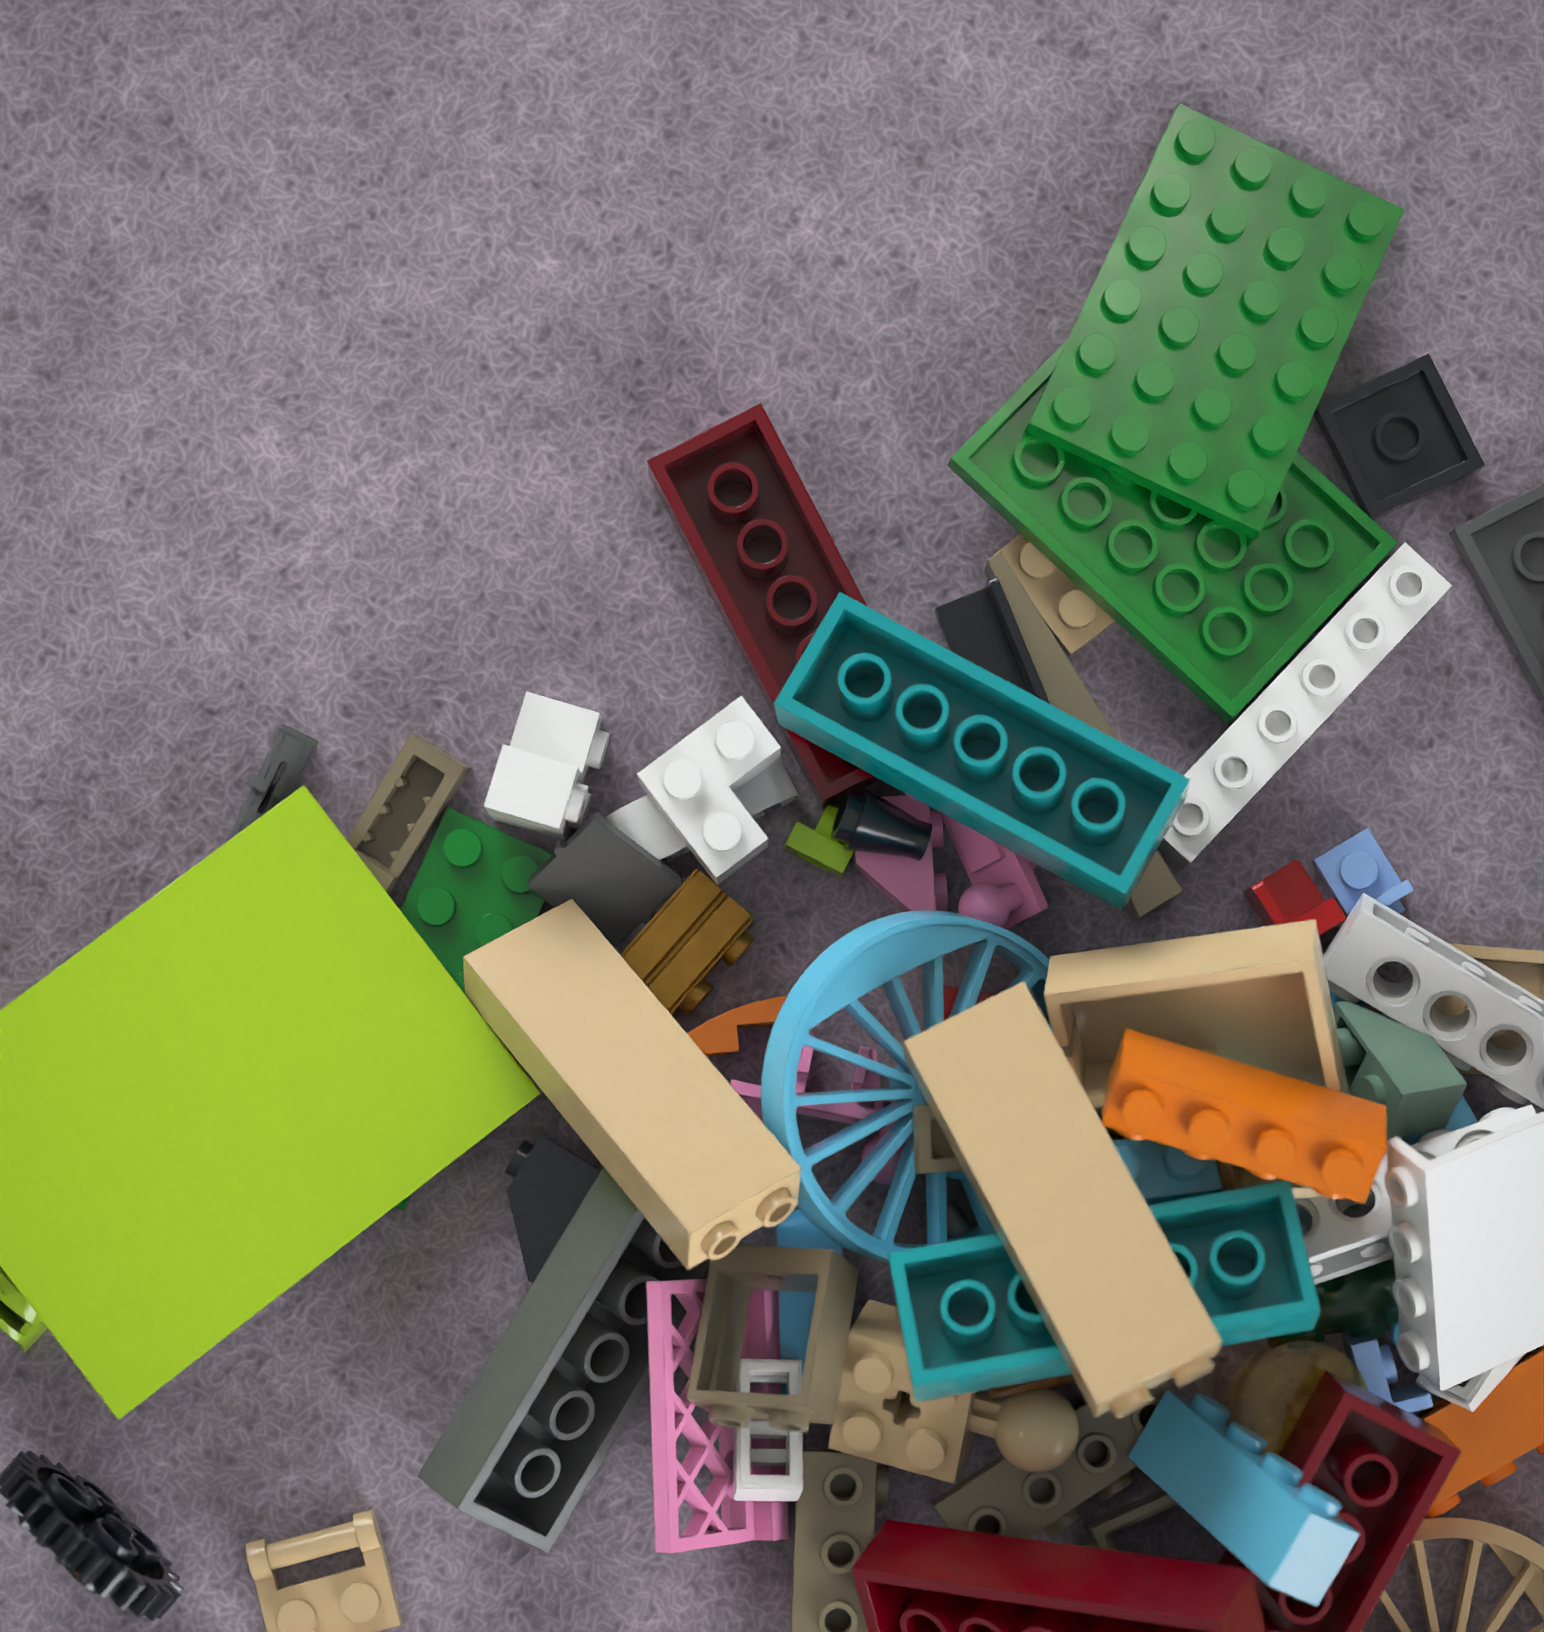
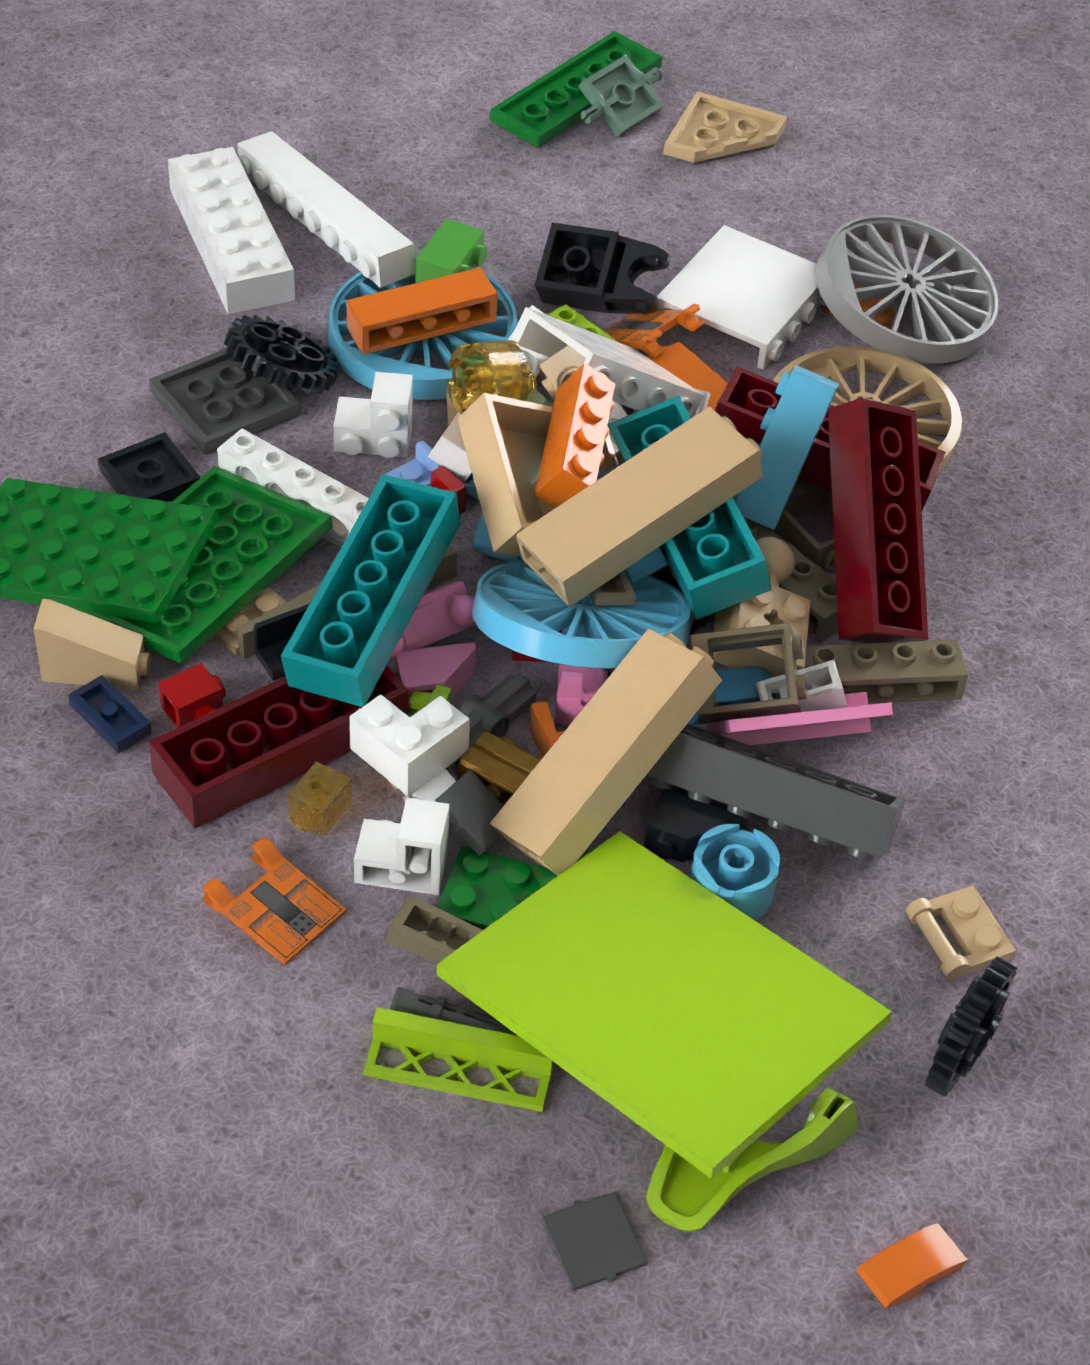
camera: 100 degrees left, 35 degrees down
(216, 797) = (463, 1045): none -> lime fence
(411, 1236) = (738, 867): none -> medium azure brick
(489, 590) = (279, 909): none -> orange flag
(665, 655) = (319, 799): none -> clear yellow brick
(788, 907) = (497, 708): none -> dark grey piece
(874, 359) = (110, 714): none -> dark blue plate
(877, 826) = (420, 666): black cone -> none
(883, 483) = (191, 694): none -> red brick
(985, 327) = (83, 647): none -> tan slope
(1454, 1001) = (491, 369): none -> clear yellow brick
(1477, 817) = (378, 423): none -> white brick

